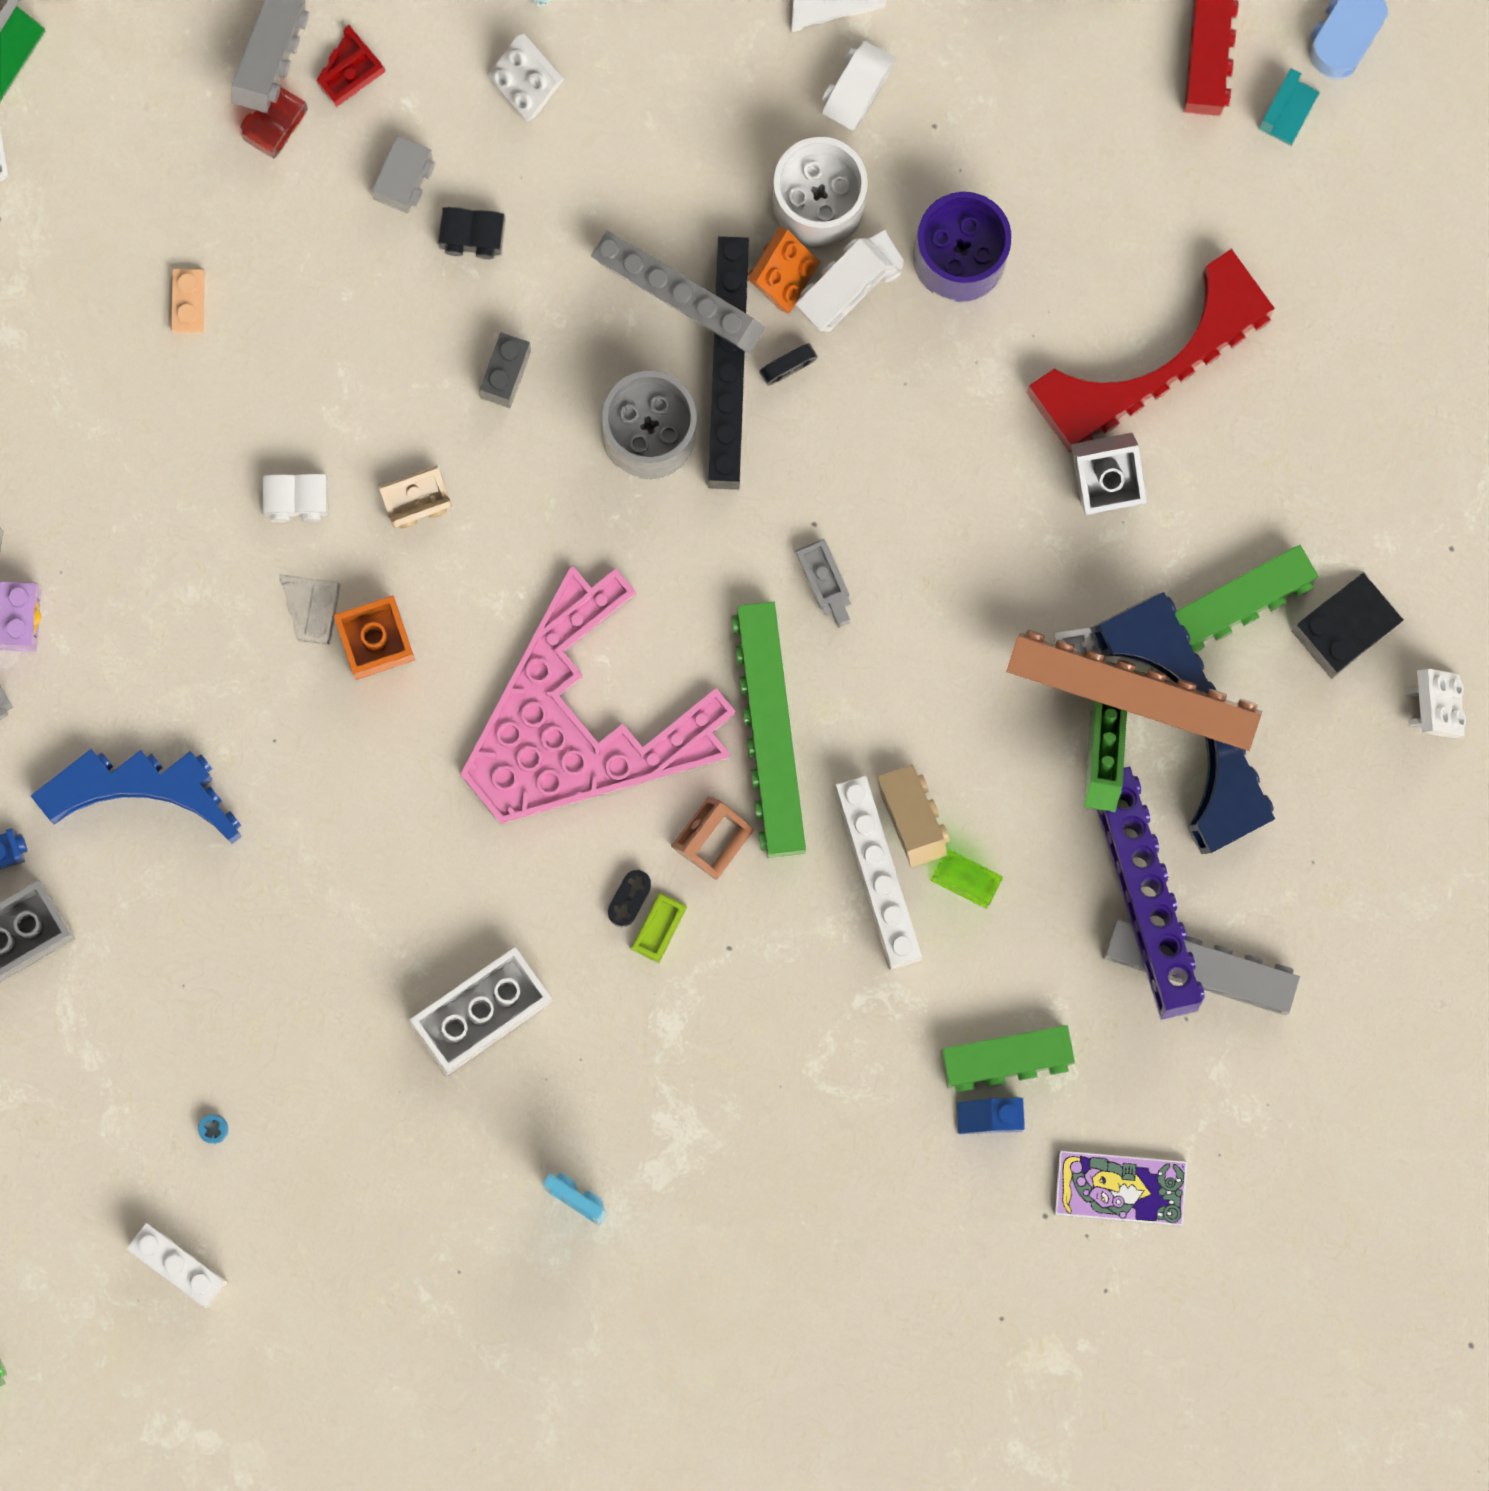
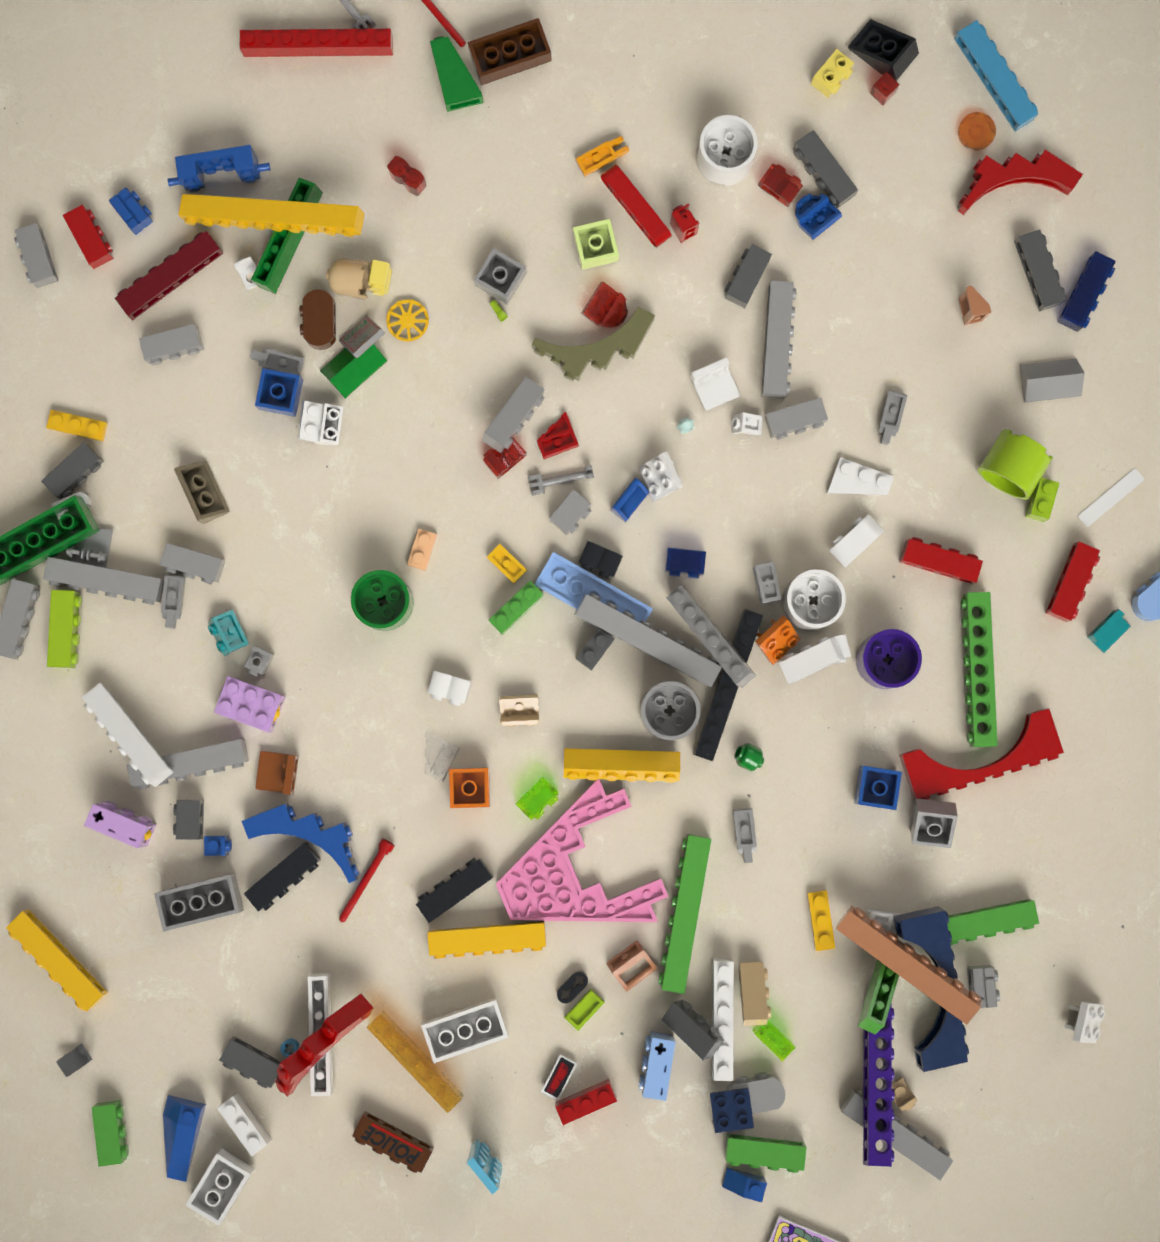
camera: 25 degrees right, 5 degrees up
(63, 708) = (277, 772): none -> dark orange bracket
(80, 1314) = (181, 1129): none -> blue wedge
(121, 866) = (282, 876): none -> black brick
(133, 373) = (377, 586): none -> green brick
(159, 1168) = (250, 1062): none -> dark grey brick
(168, 1373) = (220, 1186): none -> white brick
(254, 1095) = (315, 1046): none -> red arch
(255, 1087) = (319, 1009): none -> white brick
(268, 775) = (384, 848): none -> red piece
(327, 282) = (506, 563): none -> yellow plate
(344, 145) = (588, 473): none -> light grey hinge
(362, 343) = (516, 607): none -> bright green brick
(398, 803) = (454, 890): none -> black brick
(417, 1085) = (415, 1061): none -> clear yellow brick
(421, 1222) = (392, 1142): none -> reddish brown brick
(472, 863) = (486, 938): none -> yellow brick
(478, 292) = (571, 582): none -> light blue plate
(485, 625) = (537, 799): none -> clear neon green hinge
(489, 127) = (630, 500): none -> blue tile
(583, 329) = (647, 640): none -> light grey brick
(601, 532) = (621, 765): none -> yellow brick
(604, 197) = (685, 562): none -> clear blue brick
(651, 1043) = (558, 1077): none -> slope
(704, 1065) = (585, 1102): none -> red brick
(740, 190) = (767, 583): none -> light grey hinge
(788, 364) = (763, 696): black beam -> none
(795, 462) = (749, 757): none -> green head
(797, 972) = (657, 1065): none -> light blue piece
(835, 897) = (693, 1029): none -> dark grey brick
(934, 1005) = (731, 1110): none -> dark blue bracket
(964, 973) = (764, 1090): none -> light grey brick
(984, 679) = (821, 920): none -> yellow plate
(998, 78) = (941, 561): none -> red brick
(1007, 447) = (878, 787): none -> blue brick
(1079, 121) = (982, 601): none -> bright green brick
(1193, 905) = (902, 1095): none -> tan bracket
(1264, 689) = (982, 981): none -> light grey brick
(1347, 625) = (1046, 955): black slope -> none

